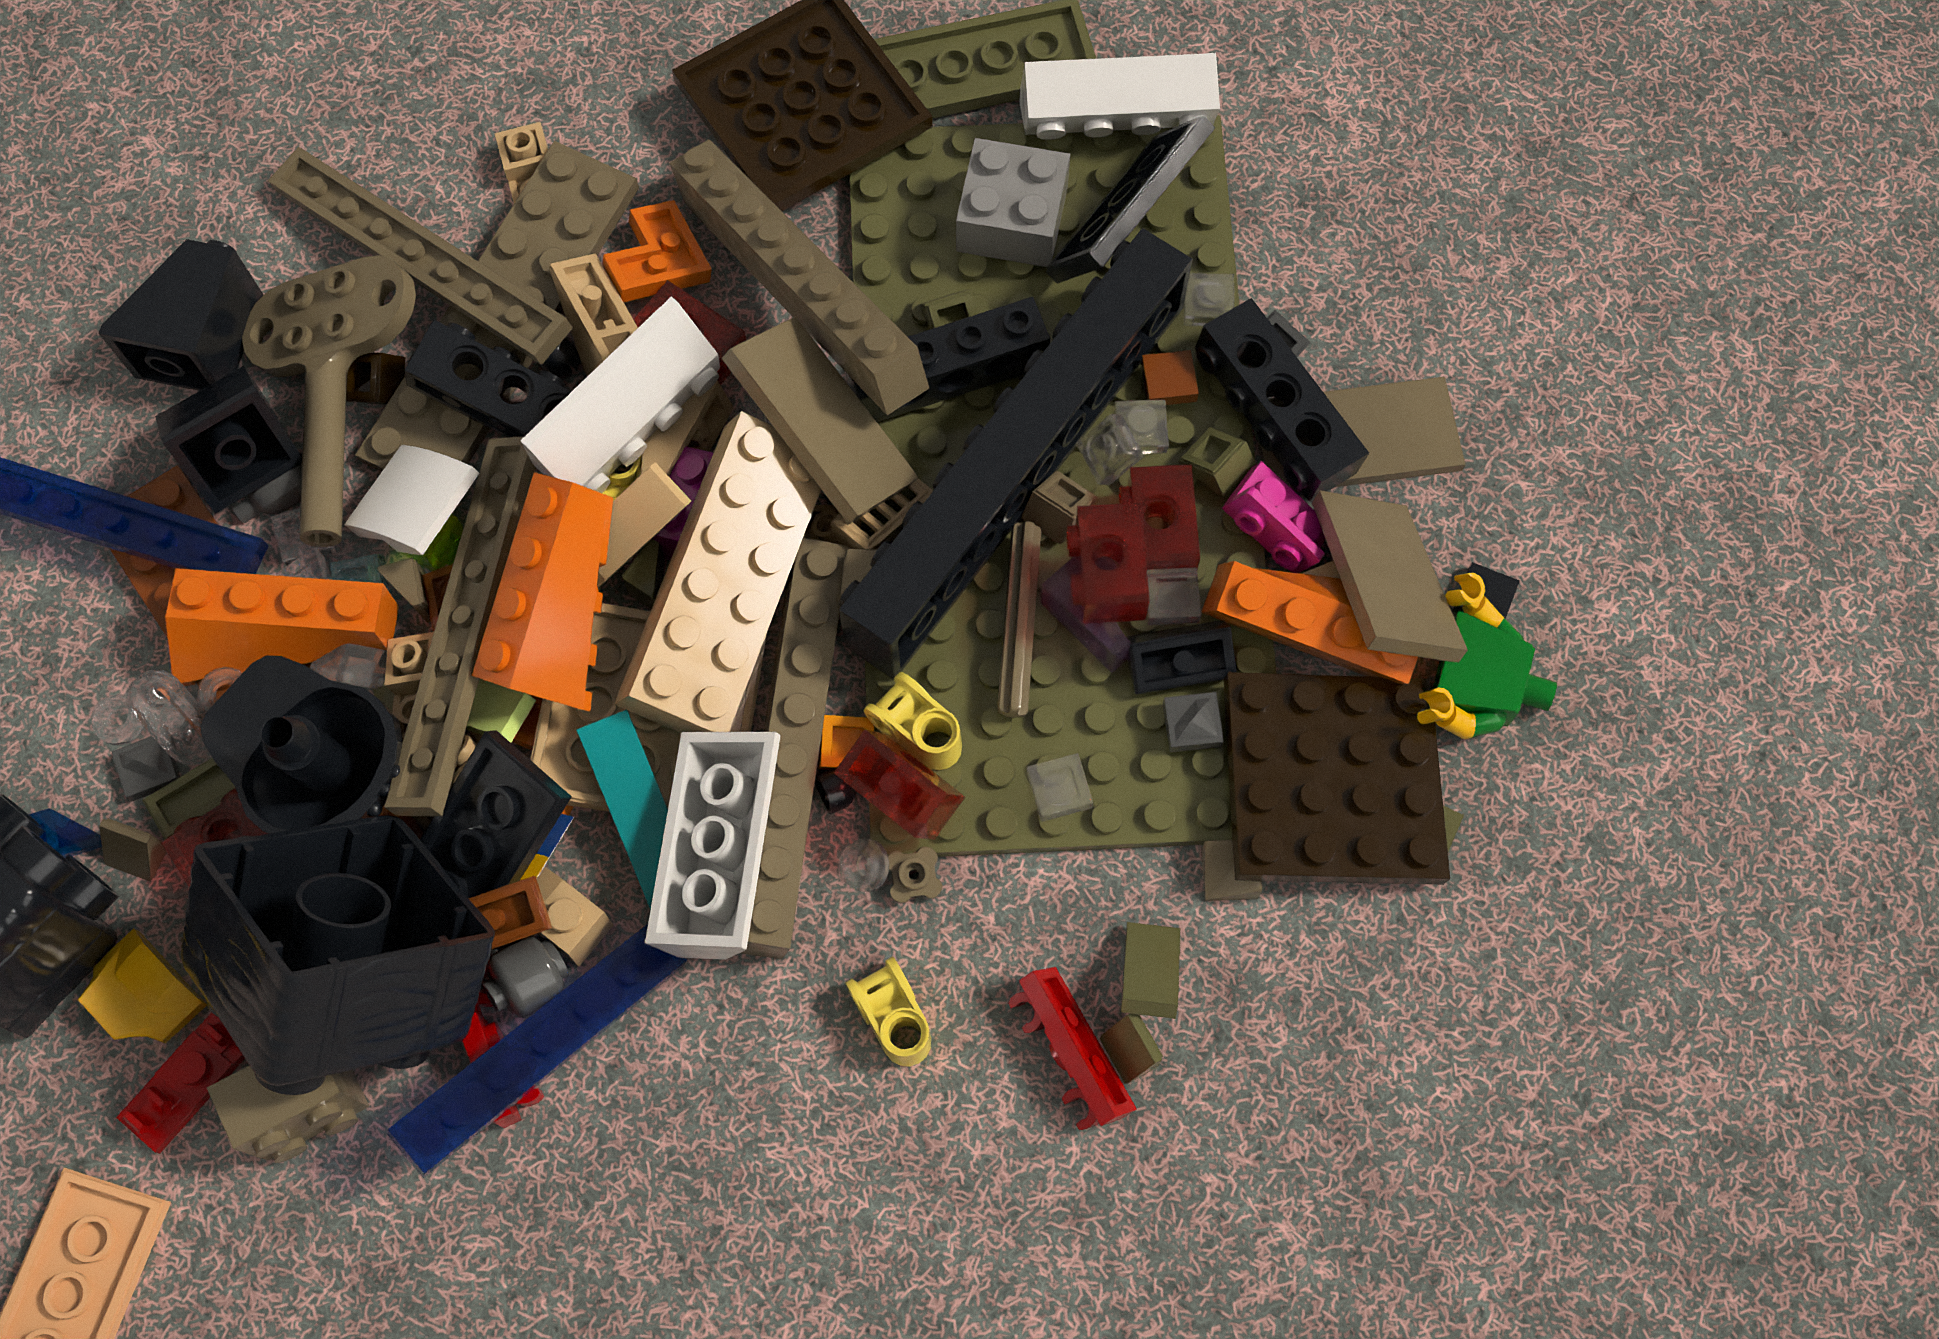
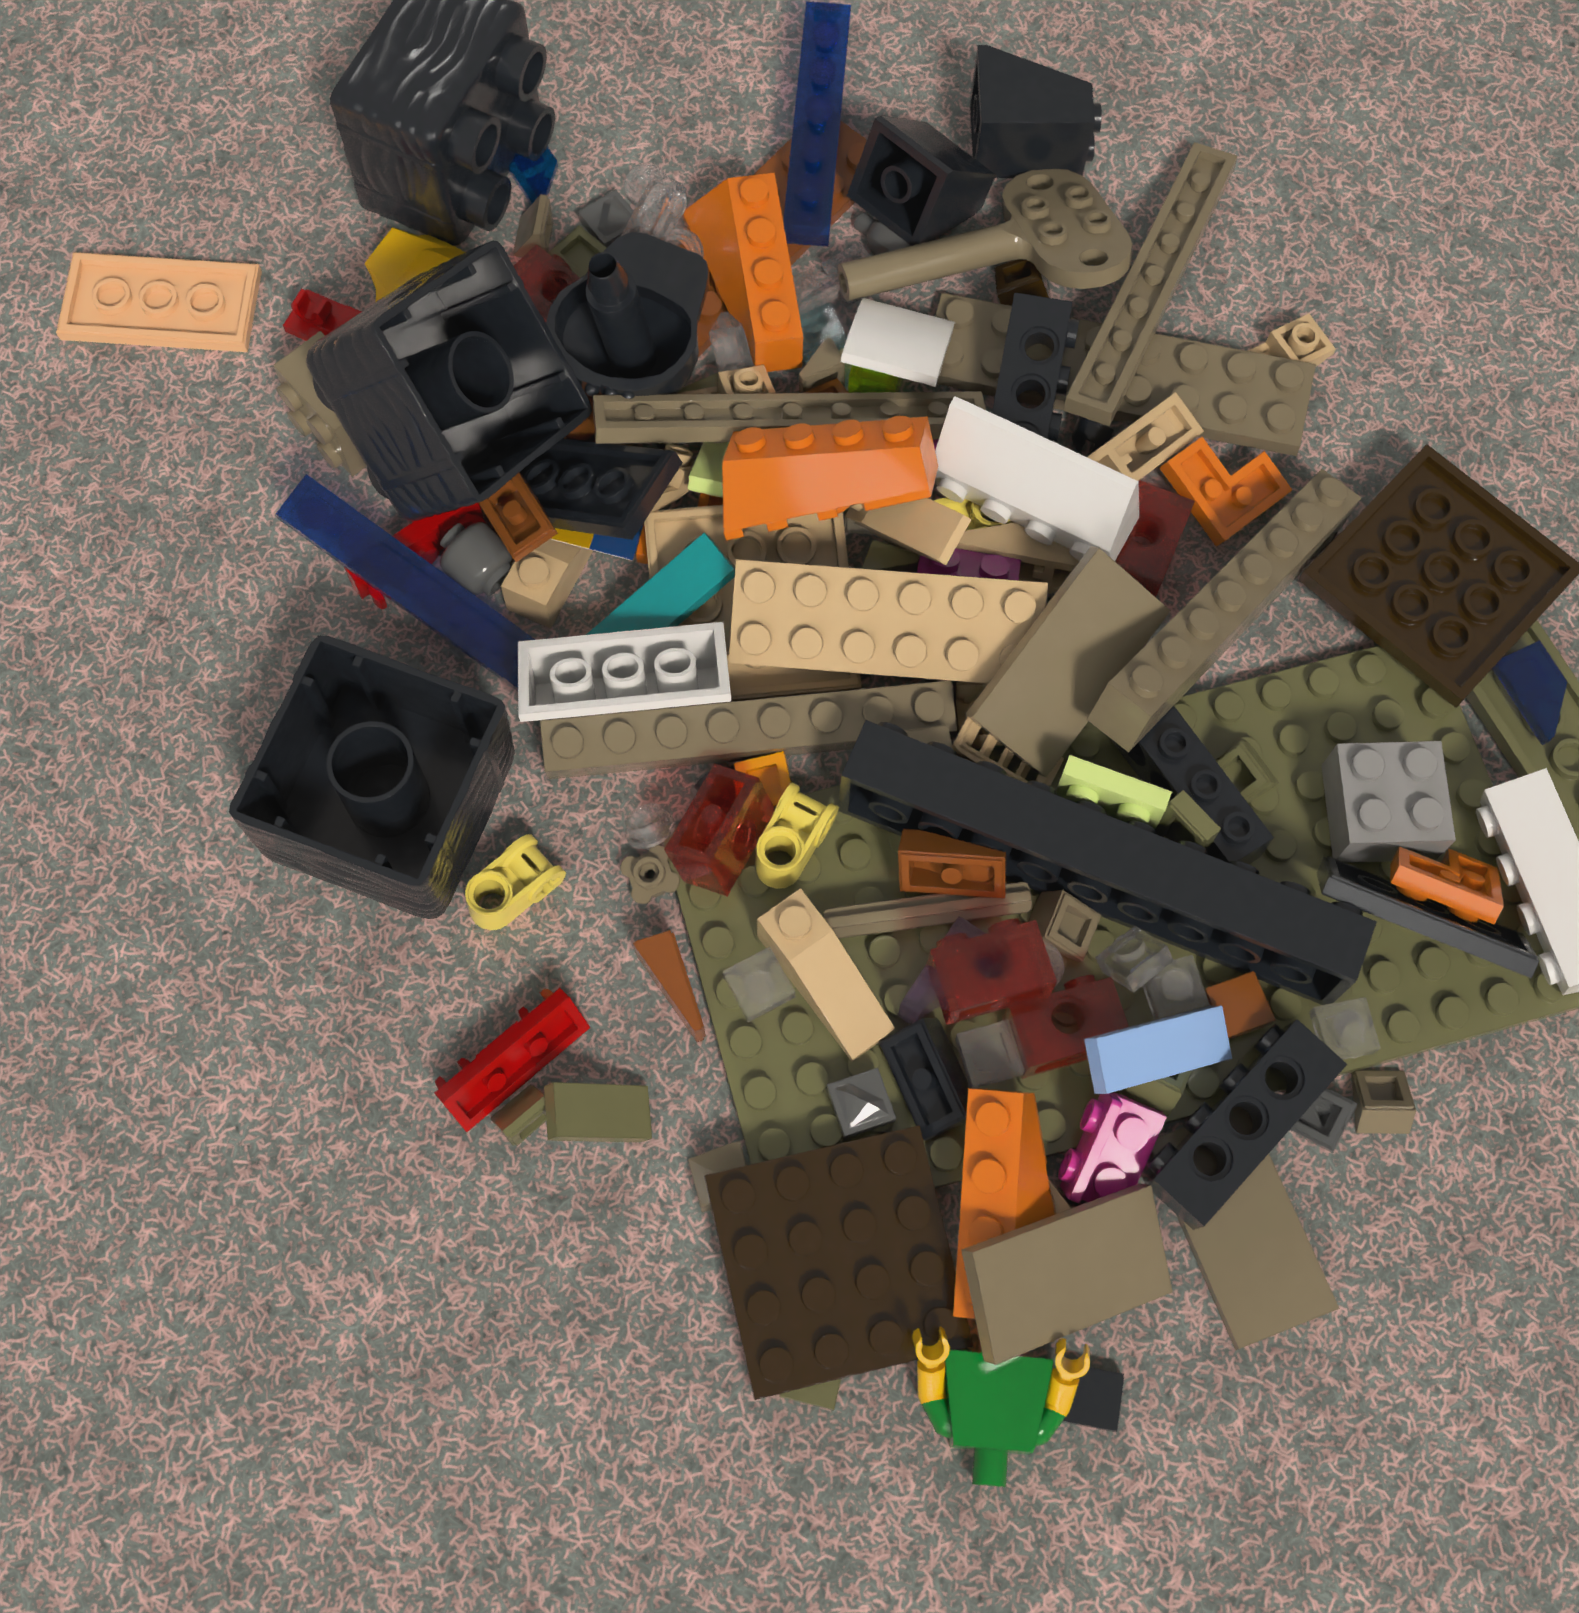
camera: 75 degrees right, 0 degrees up
(763, 1112) = (376, 777): none -> black brick
(932, 59) = (1534, 687): none -> clear blue tile
(966, 409) = (1115, 792): none -> yellowish green plate
(987, 584) = (949, 866): none -> dark orange slope
(1004, 365) = (1187, 822): none -> olive tile
(1022, 874) = (665, 966): none -> dark orange slope
(1061, 724) = (824, 974): none -> tan slope
(1104, 169) = (1460, 882): none -> orange plate
(1205, 447) = (1157, 1049): none -> light blue tile
(1272, 290) = (1382, 1102): none -> dark tan slope

